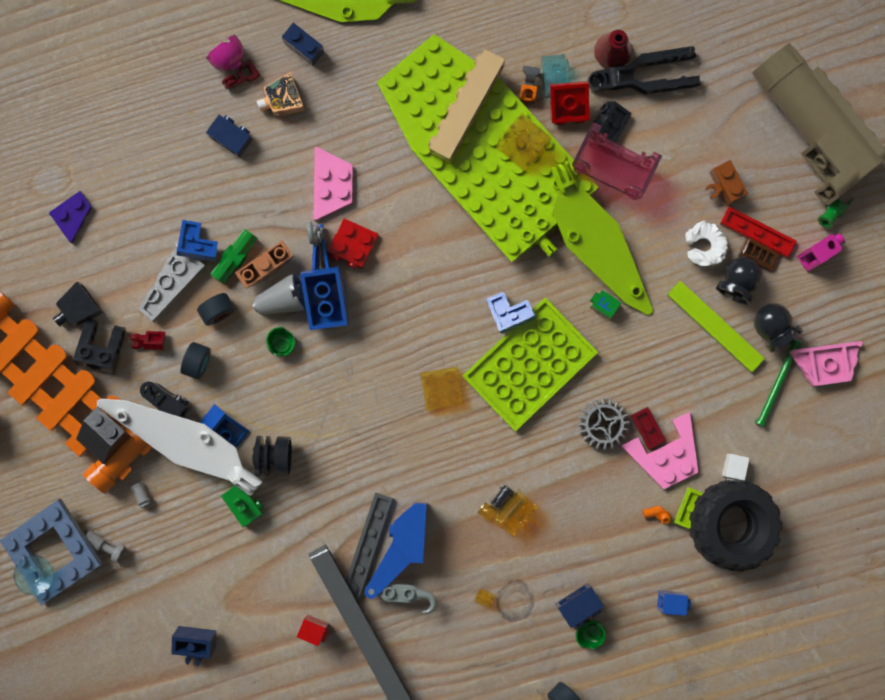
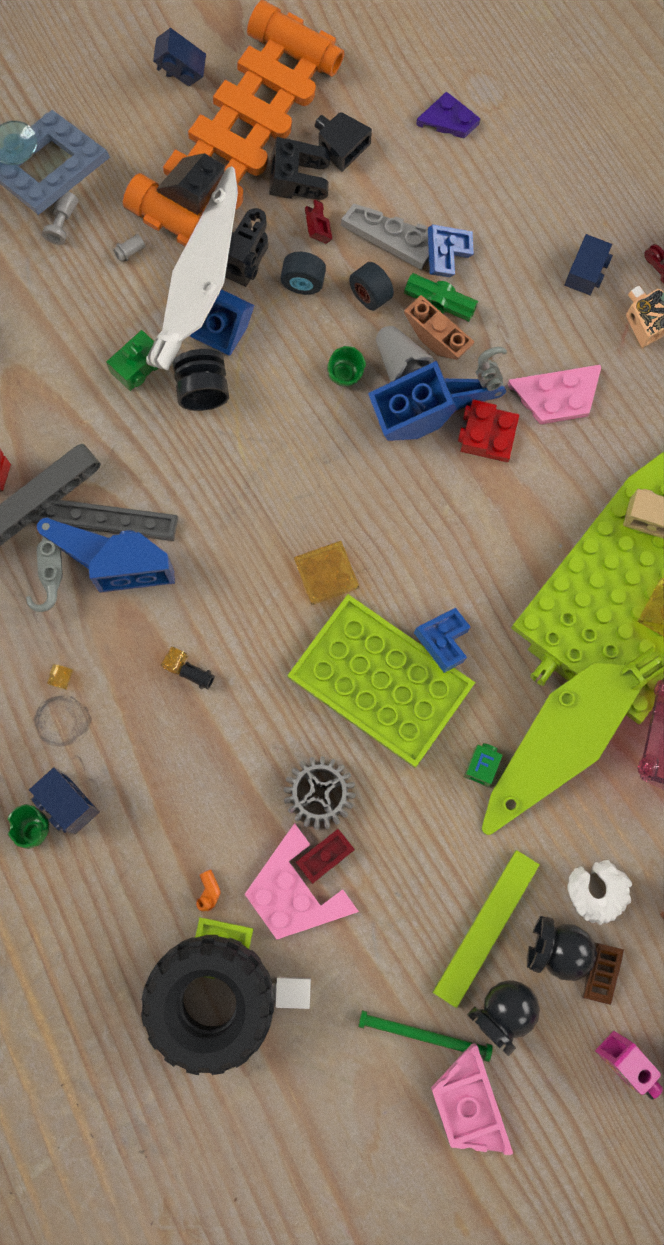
camera: 80 degrees right, 10 degrees down
(516, 513) = (177, 696): clear yellow brick -> none
(673, 602) = (85, 934): blue brick -> none
(758, 231) = (634, 967): red tile -> none

